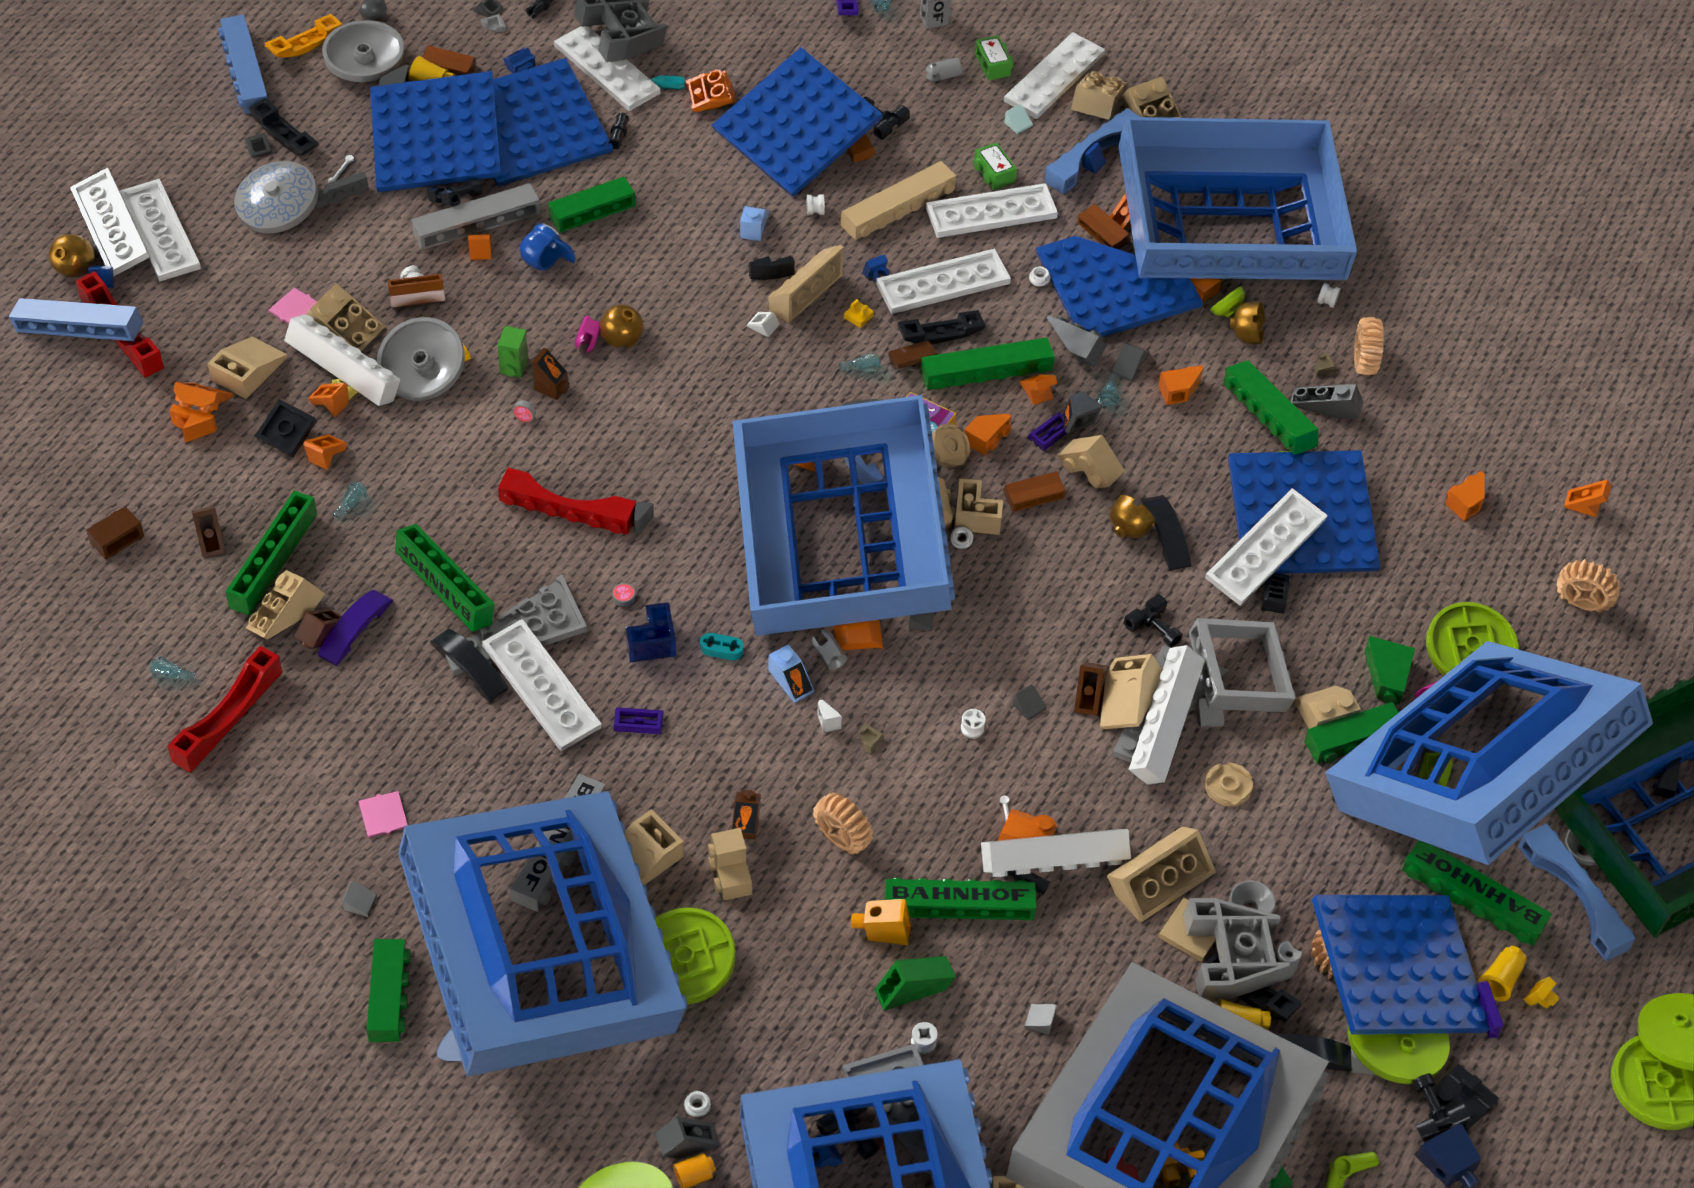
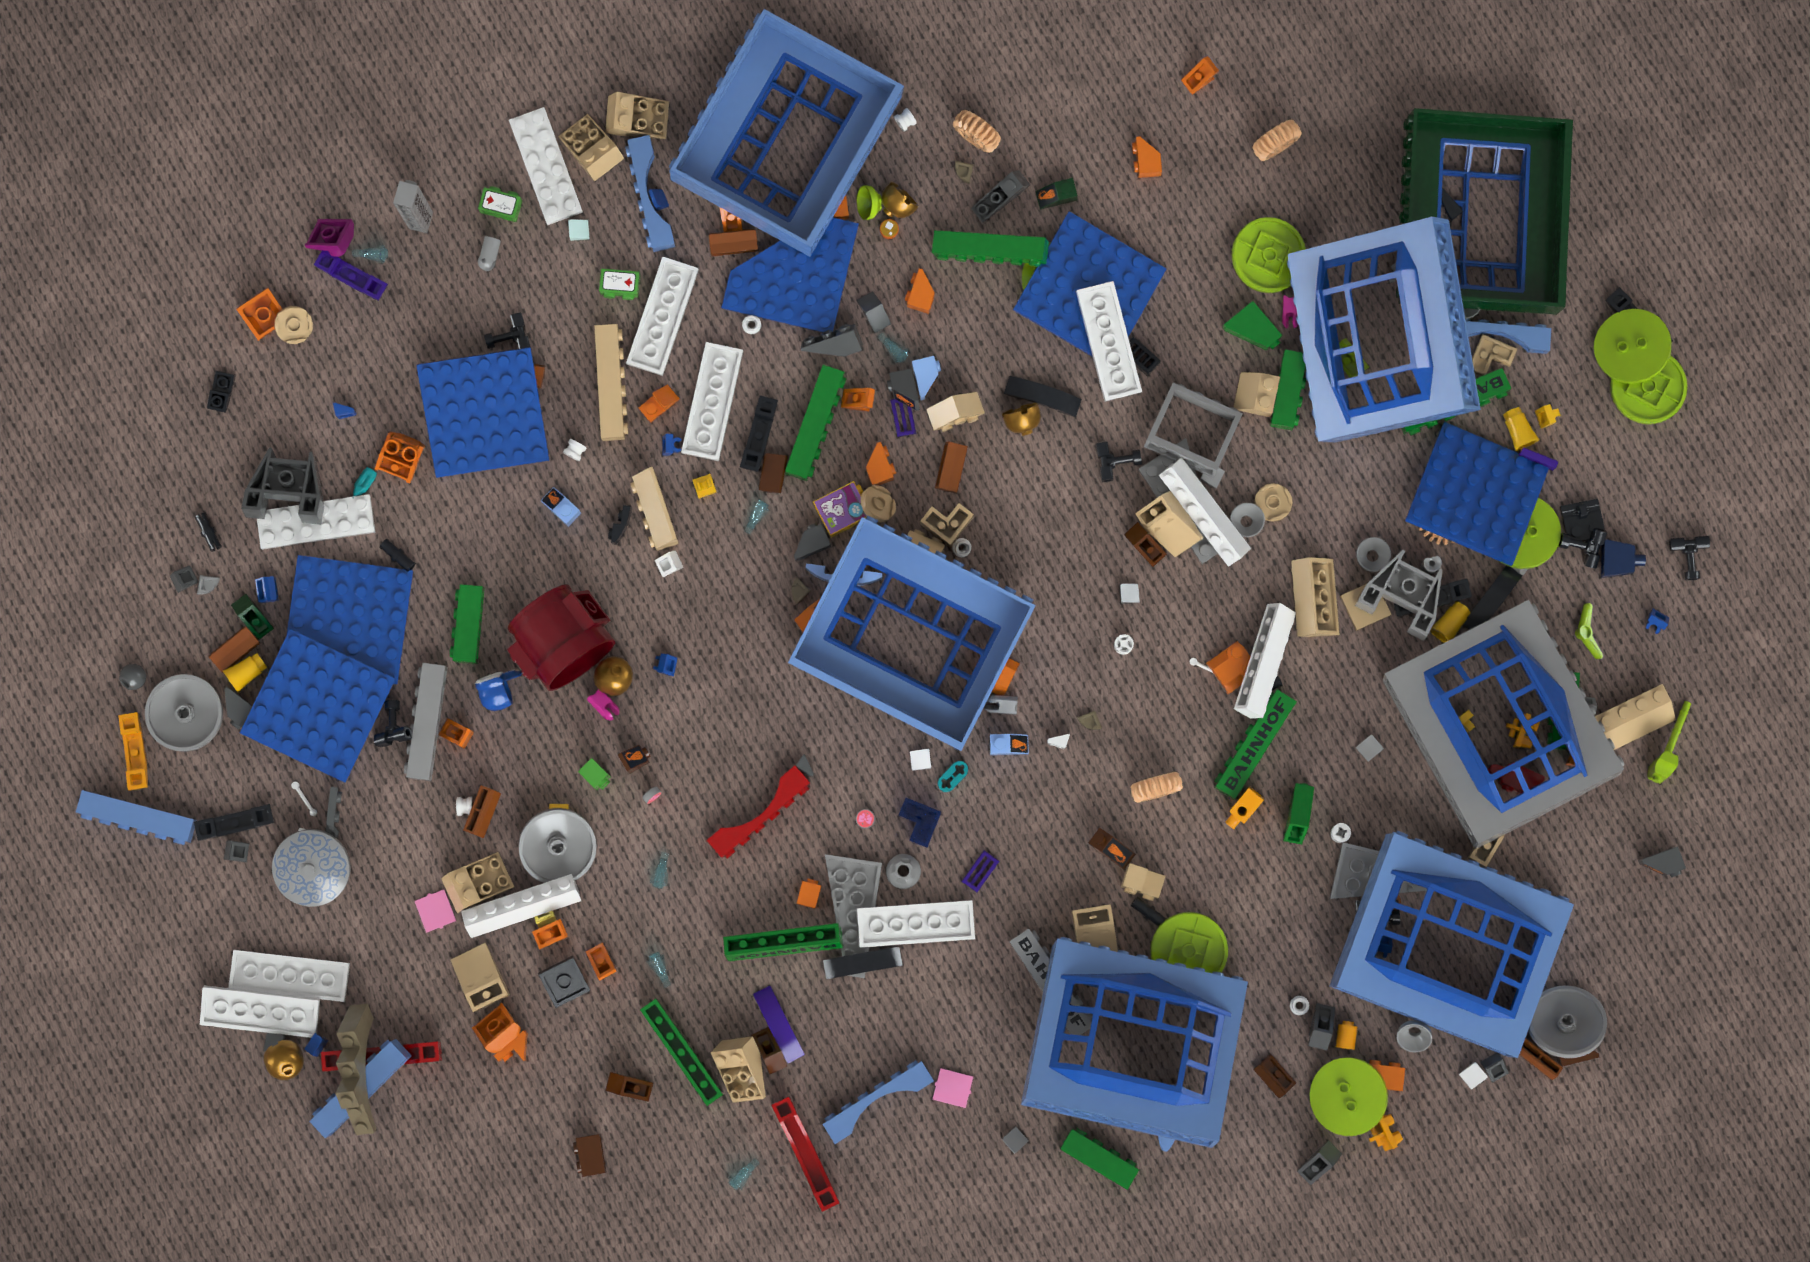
camera: 55 degrees left, 30 degrees up
(91, 289) = (352, 1067): none -> dark tan arch
(282, 730) = (913, 1079): none -> medium blue arch
(447, 455) = (660, 876): none -> clear light blue cone
(487, 56) = (252, 616): none -> dark green slope
(511, 582) = (809, 893): none -> orange brick
(591, 661) = (899, 881): none -> light grey piece
(598, 1124) = (1274, 1076): none -> reddish brown slope
(627, 254) = (560, 636): none -> dark red cylinder
(663, 362) = (666, 664): none -> blue tile
(702, 894) = (1148, 911): none -> black pin
(720, 611) = (920, 759): none -> white slope
(721, 38) = (343, 411): none -> blue slope
(911, 246) = (658, 403): none -> orange slope
(1108, 422) = (925, 374): none -> light blue slope
(1144, 1095) = (1464, 718): none -> yellow tile
(1192, 756) = (1252, 511): none -> light grey piece
(1218, 335) = (889, 229): none -> tile
(1373, 441) = (1057, 194): none -> dark green slope
(1561, 902) = (1491, 349): none -> tan tile

